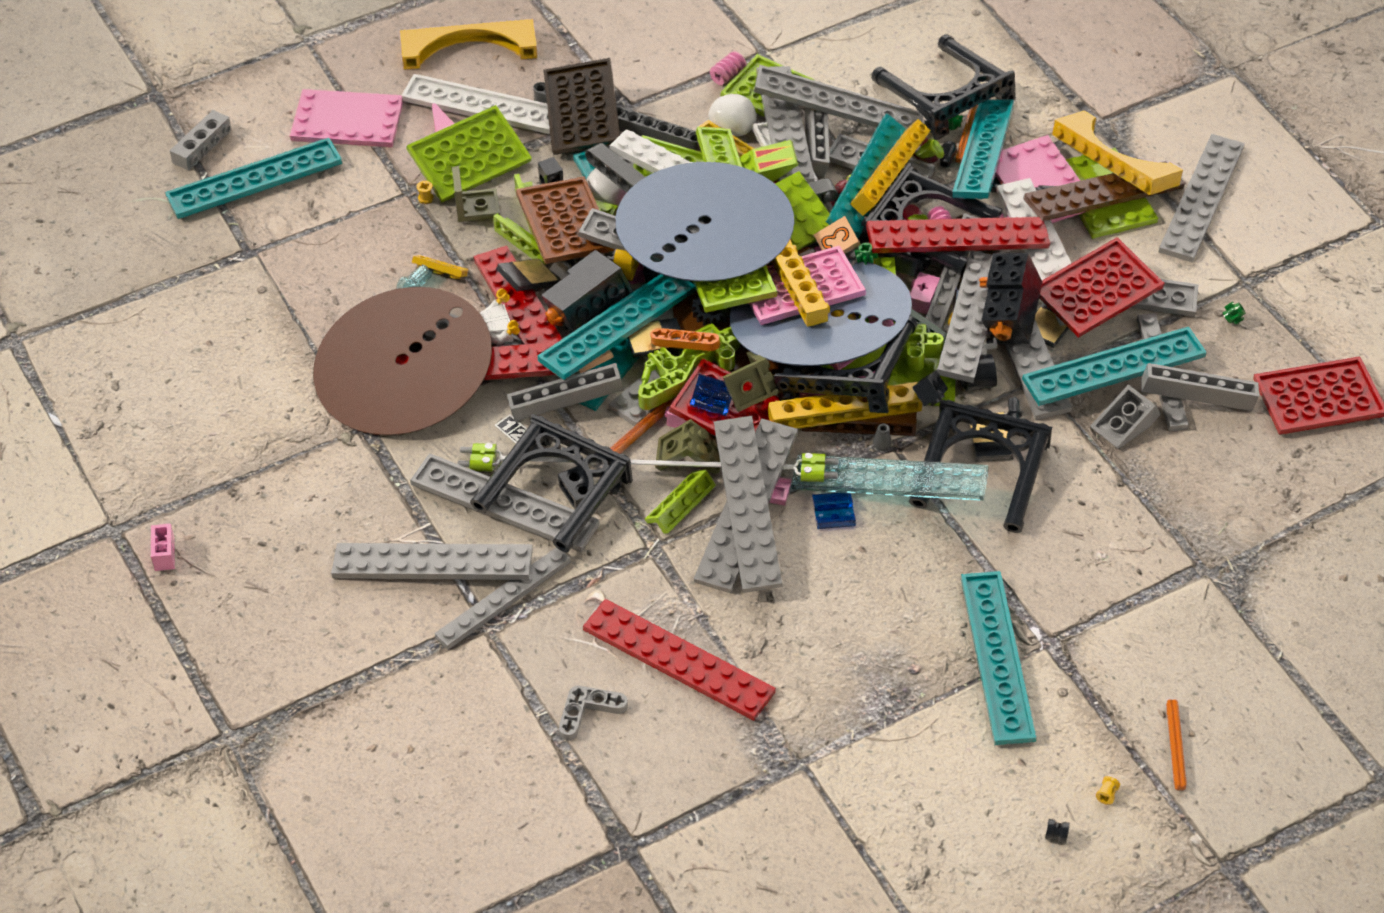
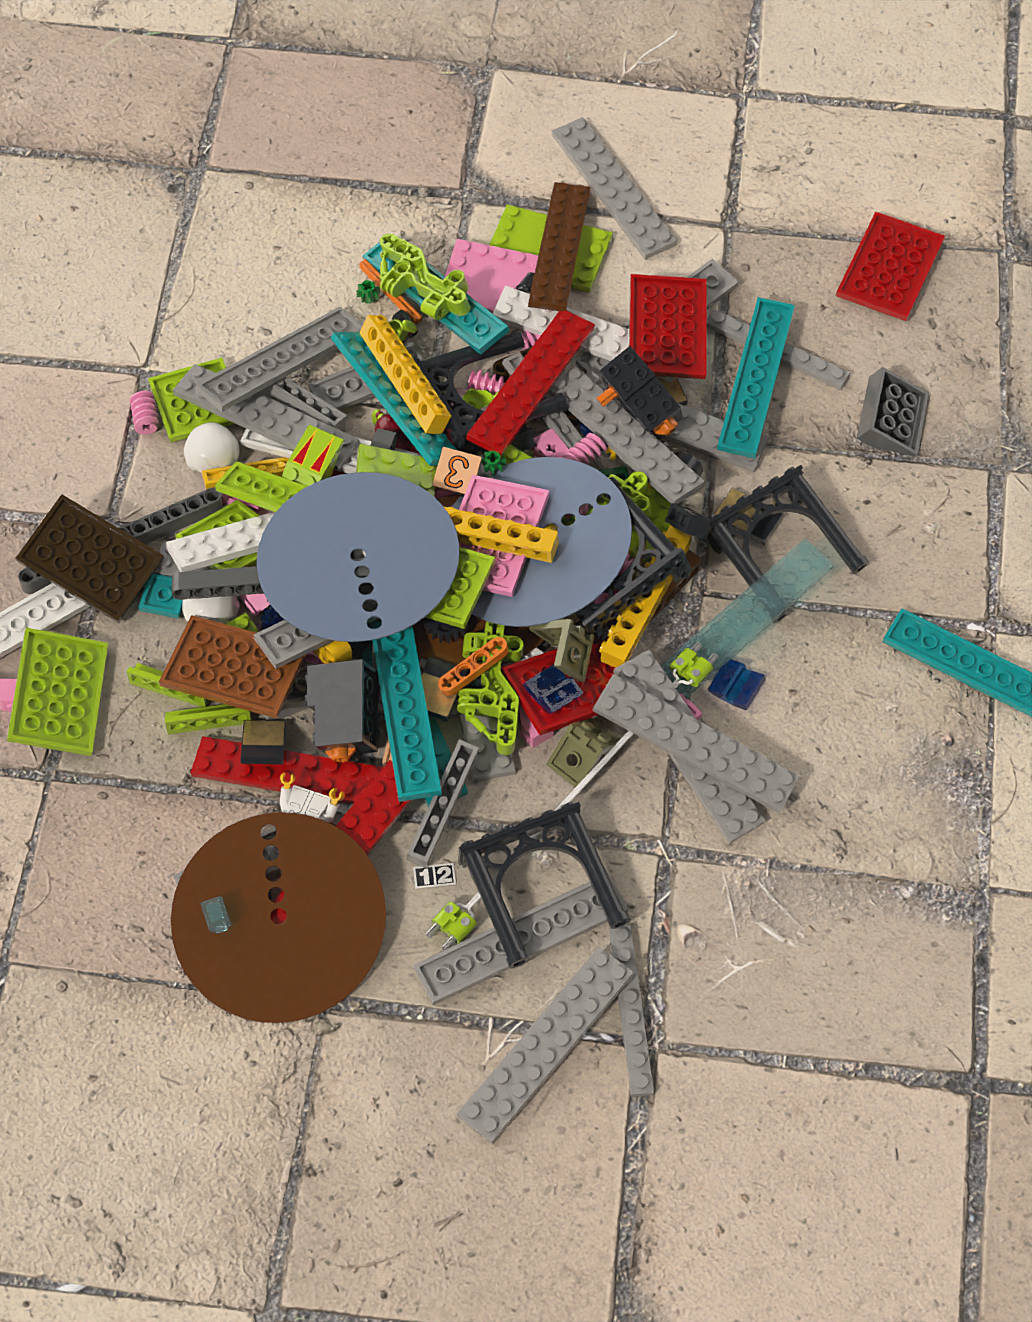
camera: 55 degrees left, 10 degrees up
(162, 547) = (342, 1278): bright pink brick -> none
(371, 323) = (216, 914): none -> clear light blue brick
(416, 278) = (180, 848): clear light blue piece -> none
(424, 189) = (65, 761): yellow bush -> none
(440, 266) = (179, 809): yellow plate -> none
(468, 201) = (112, 728): olive bracket -> none
(549, 171) = (157, 643): brick -> none
(573, 485) = (555, 873): black brick -> none
(586, 701) = (801, 1017): light grey beam -> none
(641, 427) = (524, 777): orange axle -> none
(679, 659) = (806, 911): plate -> none
(681, 500) = (640, 793): lime fence -> none
(882, 438) = (691, 595): dark grey cone -> none
(933, 303) = (586, 449): none -> bright pink piece
(984, 126) = (413, 270): none -> lime beam
(998, 84) = (359, 299): black arch -> none
(1014, 408) = (740, 482): black axle -> none
(1126, 417) = (810, 409): light grey slope -> none
(1149, 176) = (577, 205): yellow arch -> none
(1178, 471) = (892, 413): none -> dark grey slope
(1200, 387) = (828, 336): light grey brick -> none
(1234, 313) = (761, 257): green gear -> none

